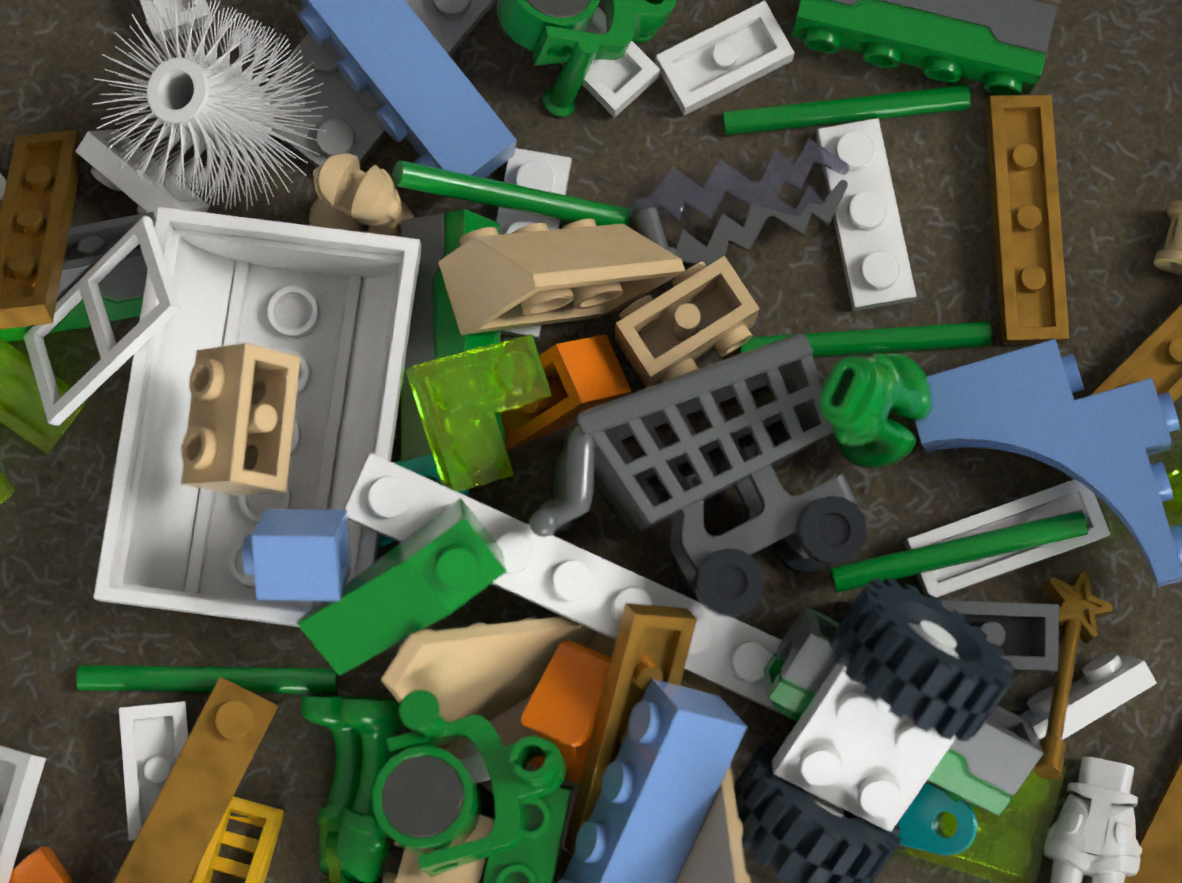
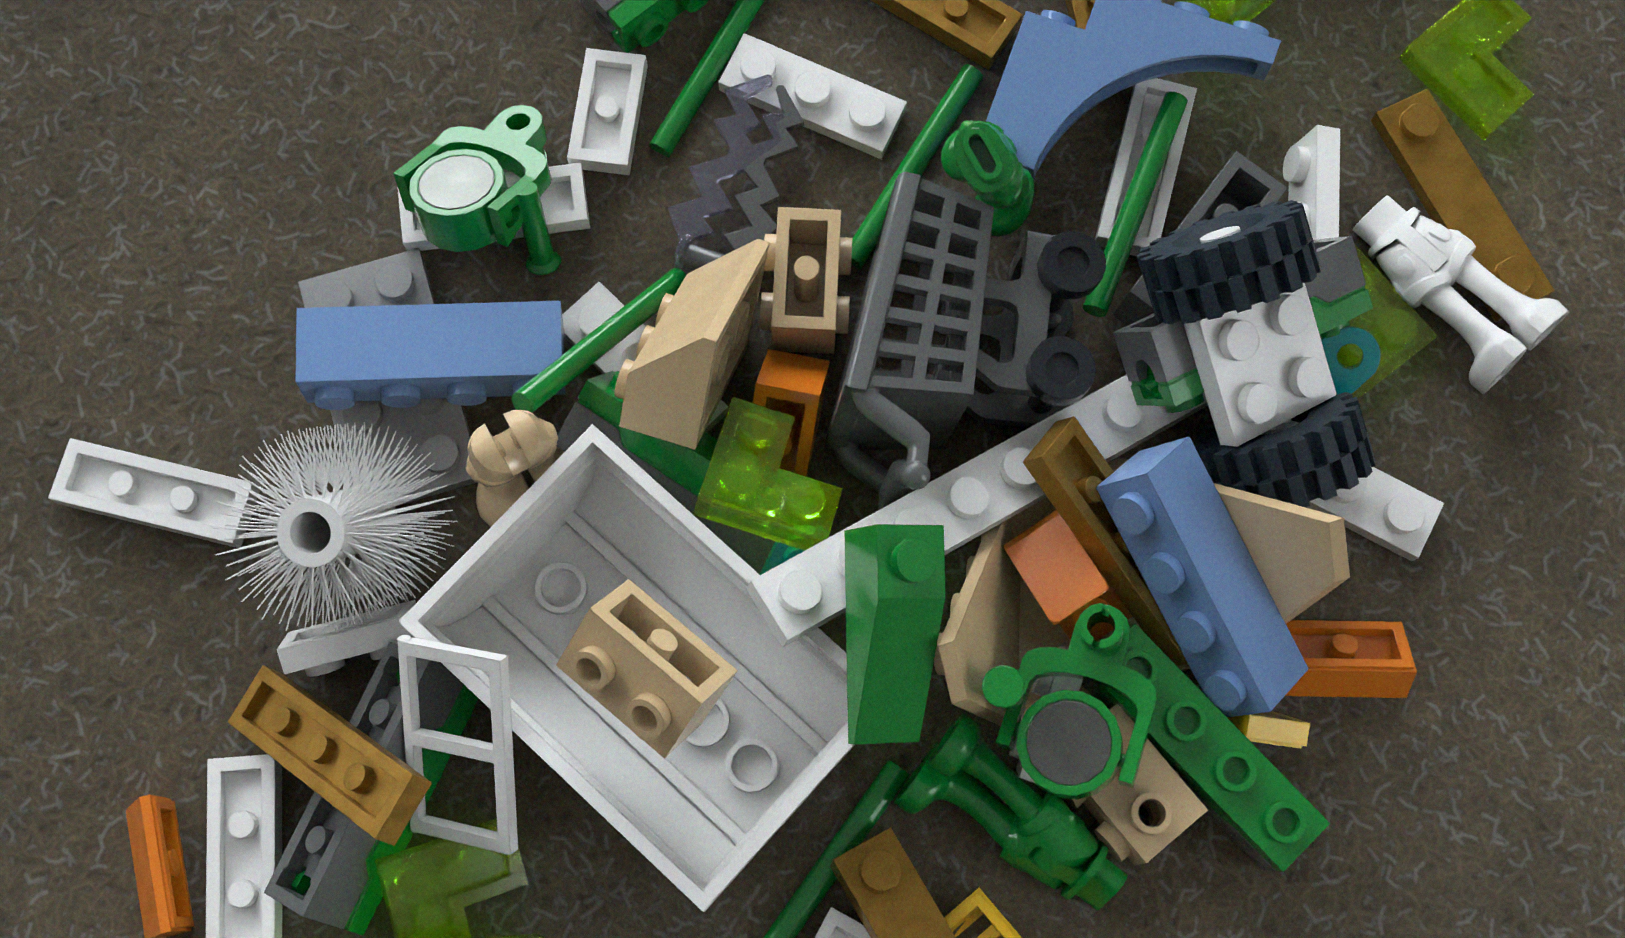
camera: 55 degrees left, 5 degrees down
(299, 554) = (799, 697): medium blue brick -> none
(1078, 614) = (1224, 146): pearl gold piece -> none

